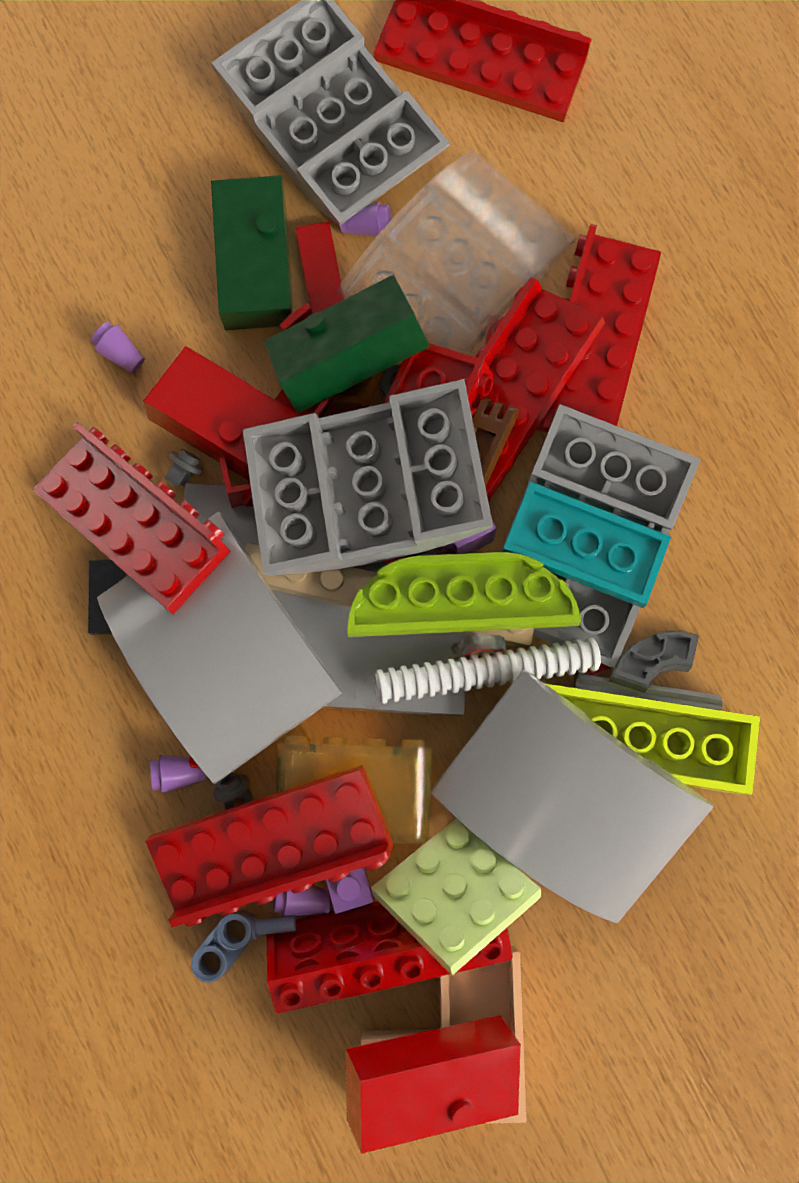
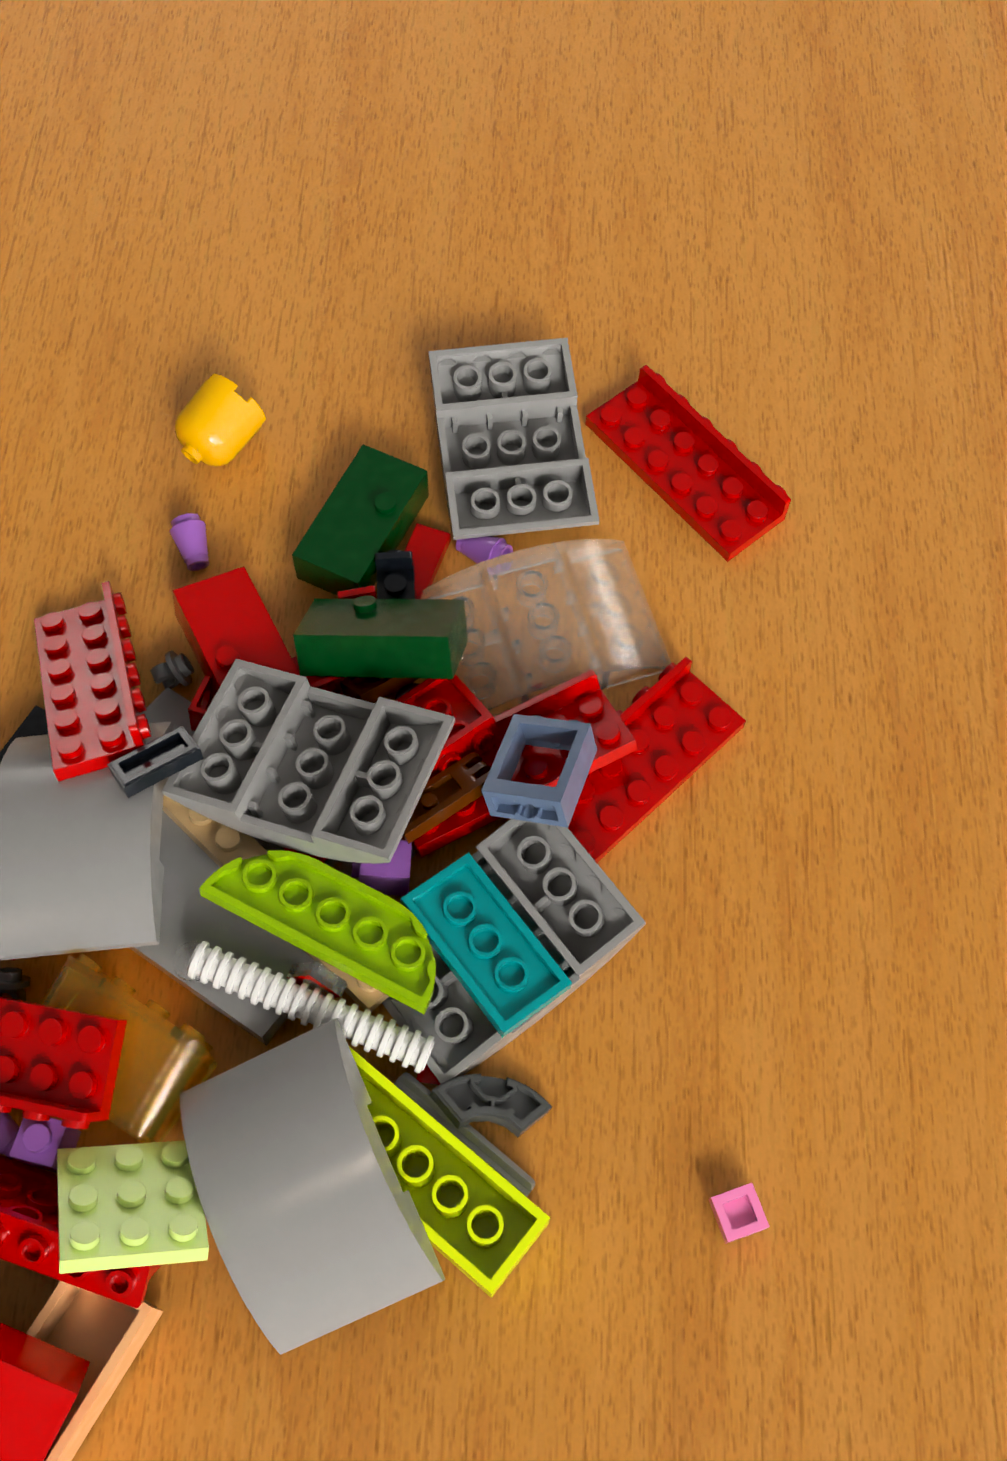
camera: 30 degrees right, 15 degrees down
(68, 228) = (217, 422): none -> yellow cylinder
(244, 553) = (155, 761): none -> black tile
(314, 285) = (395, 575): none -> black bracket
(560, 414) = (535, 801): none -> sand blue window

